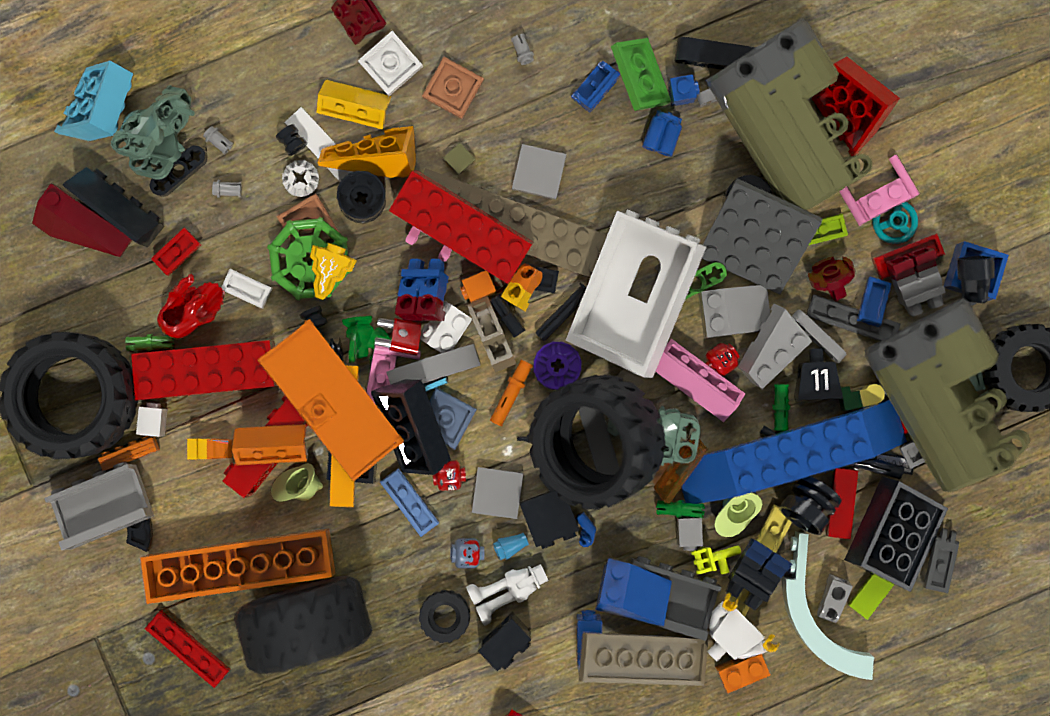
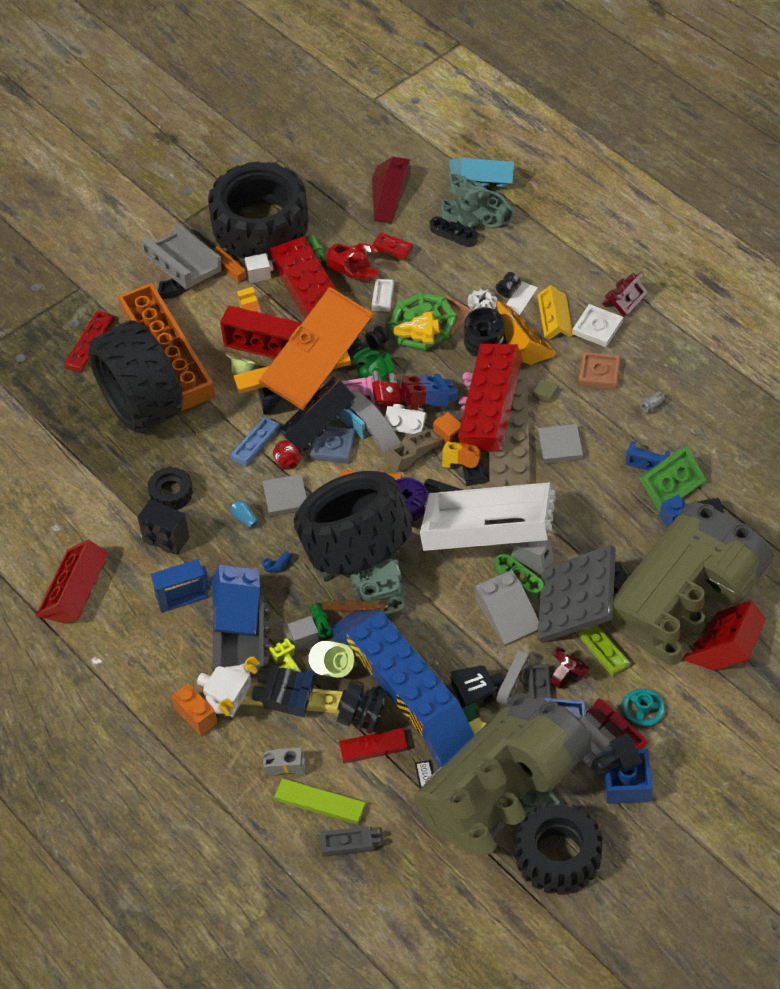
camera: 70 degrees right, 35 degrees down
(115, 206) = (409, 200): black slope -> none
(217, 139) = (488, 243): light grey pin -> none
(226, 188) = (452, 258): light grey pin -> none
(269, 444) = (266, 320): orange panel -> none
(466, 553) = (227, 485): sand blue head -> none
(507, 315) = (433, 456): black axle -> none
(519, 586) = (214, 528): white piece -> none
(548, 519) = (275, 531): black piece -> none
(642, 659) = (180, 619): dark tan plate -> none
(663, 133) = (633, 513): blue piece -> none
(699, 381) = (435, 596): bright pink brick -> none
(722, 358) = (461, 612): red head -> none
(774, 347) = (489, 640): light grey wedge -> none
(781, 407) = (453, 664): green pin -> none
(842, 659) = (255, 744): light aqua arch -> none
(880, 467) = (416, 745): black pin -> none
(882, 198) = (658, 687): bright pink plate -> none
(896, 533) = (361, 791): black slope -> none

